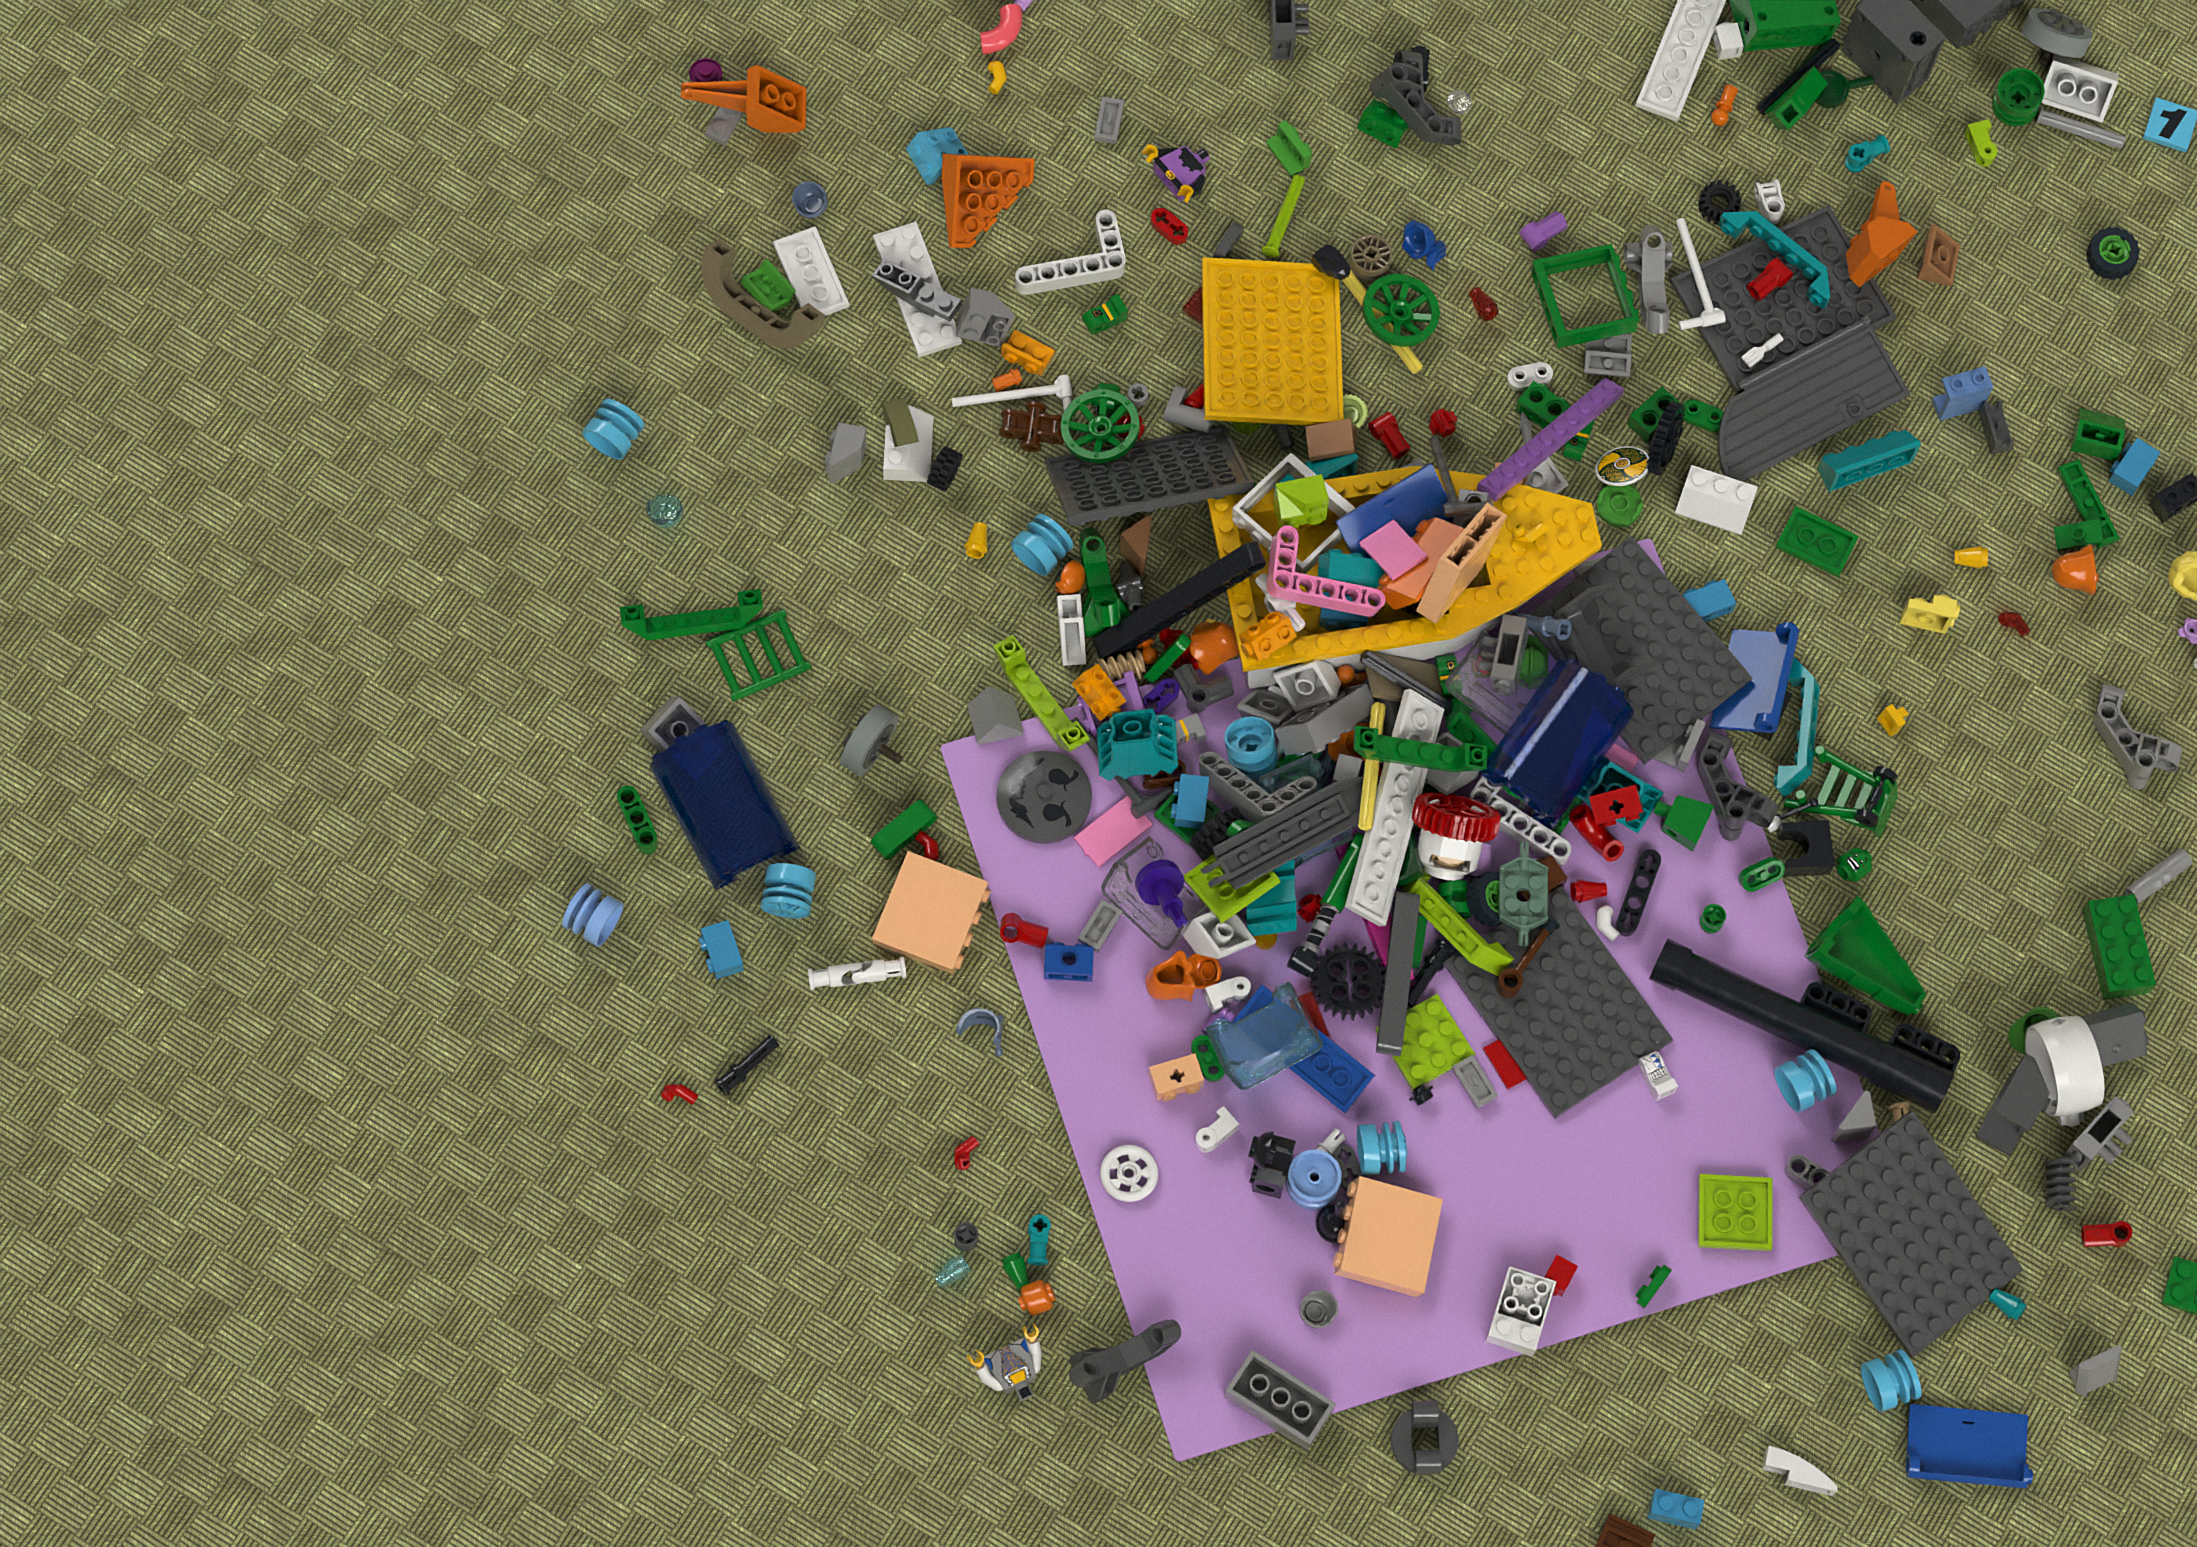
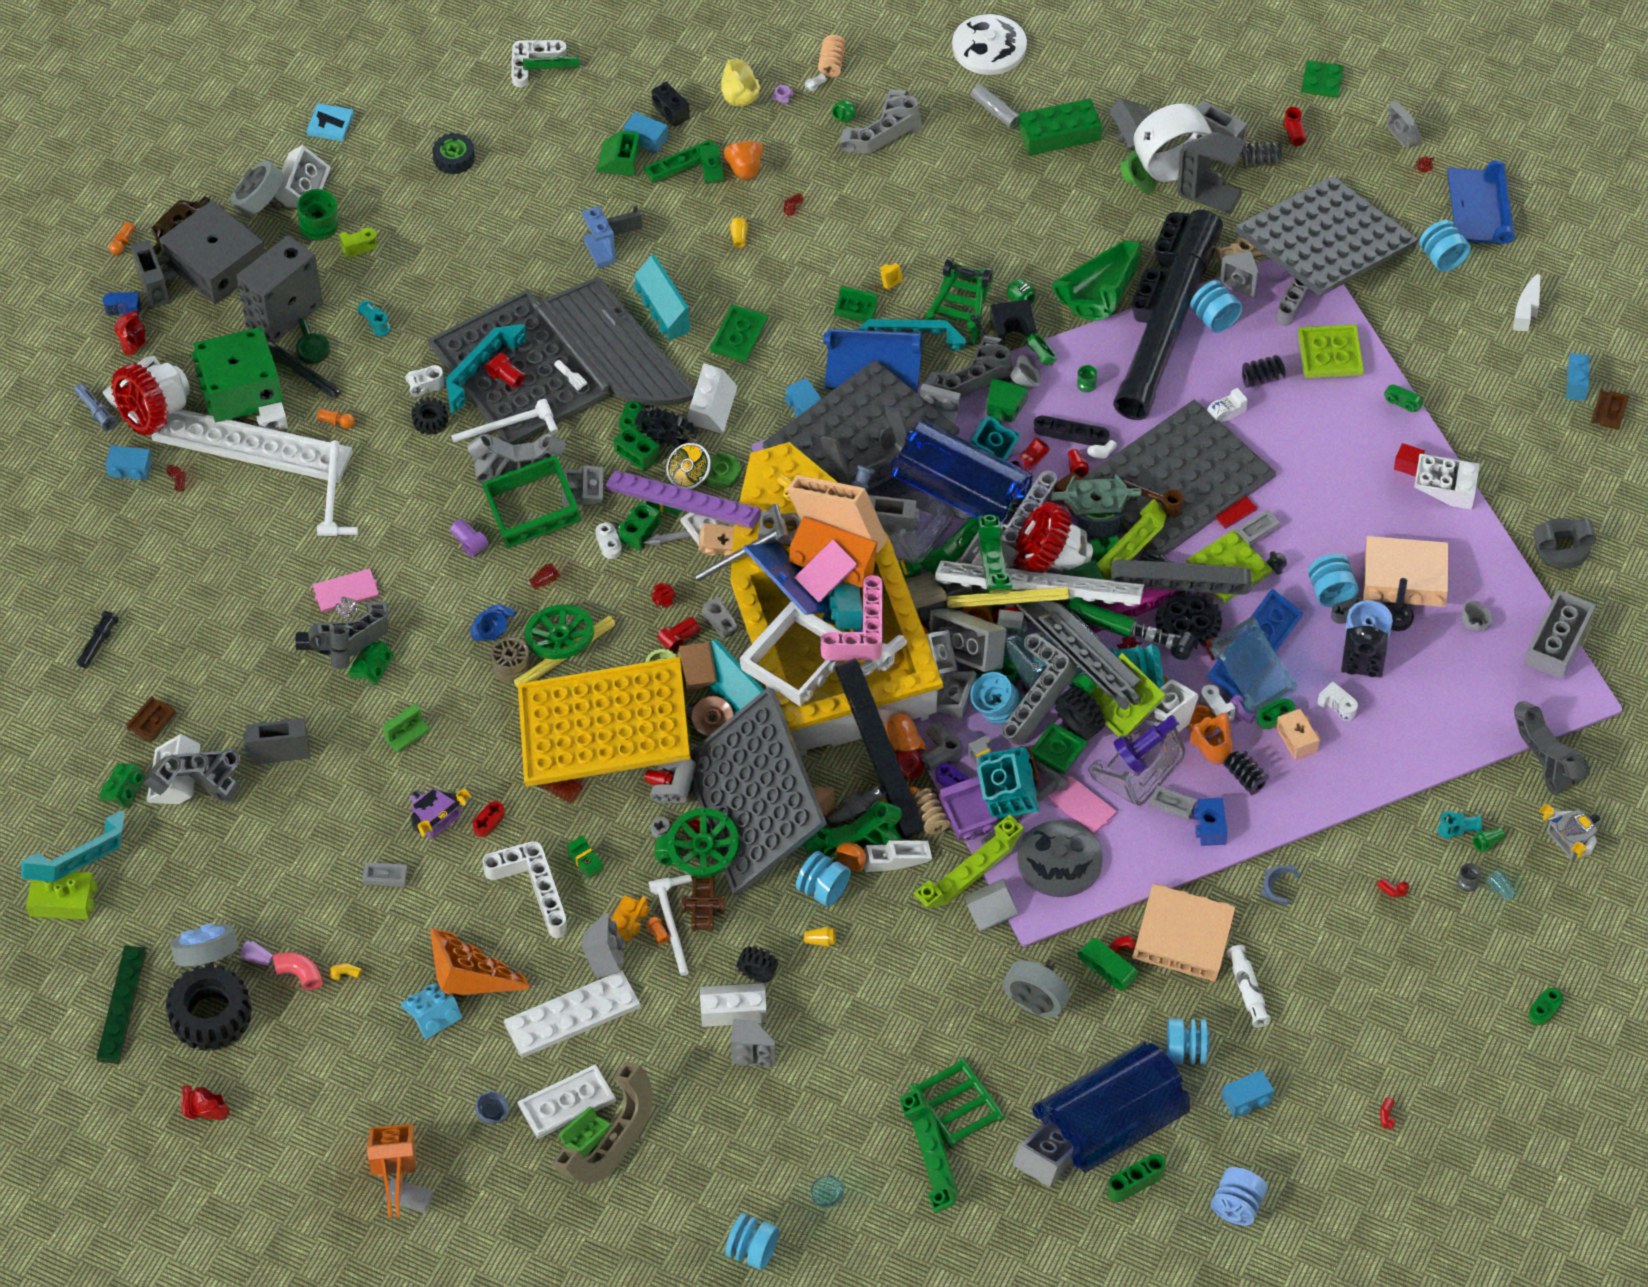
camera: 90 degrees left, 15 degrees down
(705, 71) = (361, 1216): magenta plate -> none
(738, 1072) = (1358, 1067): black pin -> none
(790, 1292) = (1547, 1005): none -> green plate
(900, 421) = (719, 994): olive slope -> none
(916, 292) = (583, 1002): dark grey slope -> none
(1025, 931) = (1190, 858): red piece -> none
(1036, 1297) = (1510, 819): orange head -> none
(1099, 692) = (963, 814): light orange brick -> none
(1129, 1010) = (1246, 772): none -> black piece
(1134, 1154) = (1386, 756): white plate -> none
(1164, 661) = (915, 757): green beam -> none
(1191, 801) = (1052, 738): dark azure brick -> none
(1229, 241) = (502, 769): dark grey beam -> none
(1266, 452) = (707, 707): none -> nougat dish
(1267, 636) = (917, 658): light orange brick -> none
(1283, 217) = (471, 730): lime axle -> none
(1301, 501) = (793, 634): lime slope -> none
(1330, 1144) = (1332, 622): white pin -> none
(1331, 262) = (520, 682): black rock -> none
(1403, 680) = (925, 582): black axle -> none
(1488, 105) = (357, 586): none -> bright pink piece
(1572, 89) = (328, 527): none -> white bar
(1628, 796) = (1009, 434): red brick -> none
(1706, 1124) = (1262, 369): none -> black piece
(1724, 850) = (1025, 373): none -> light grey piece
(1796, 100) = (334, 365): green slope -> none
(1847, 675) = (856, 304): none -> green bracket
(1881, 237) = (468, 292): orange slope -> none
(1931, 616) = (796, 249): light yellow plate -> none
(1938, 257) = (468, 268): medium nougat slope -> none
(2009, 1304) = (1363, 182): teal cone -> none
(2036, 1387) = (1424, 164): none -> clear red plate
(2080, 128) = (341, 173): light grey axle -> none
(2159, 695) = (844, 111): none -> green animal

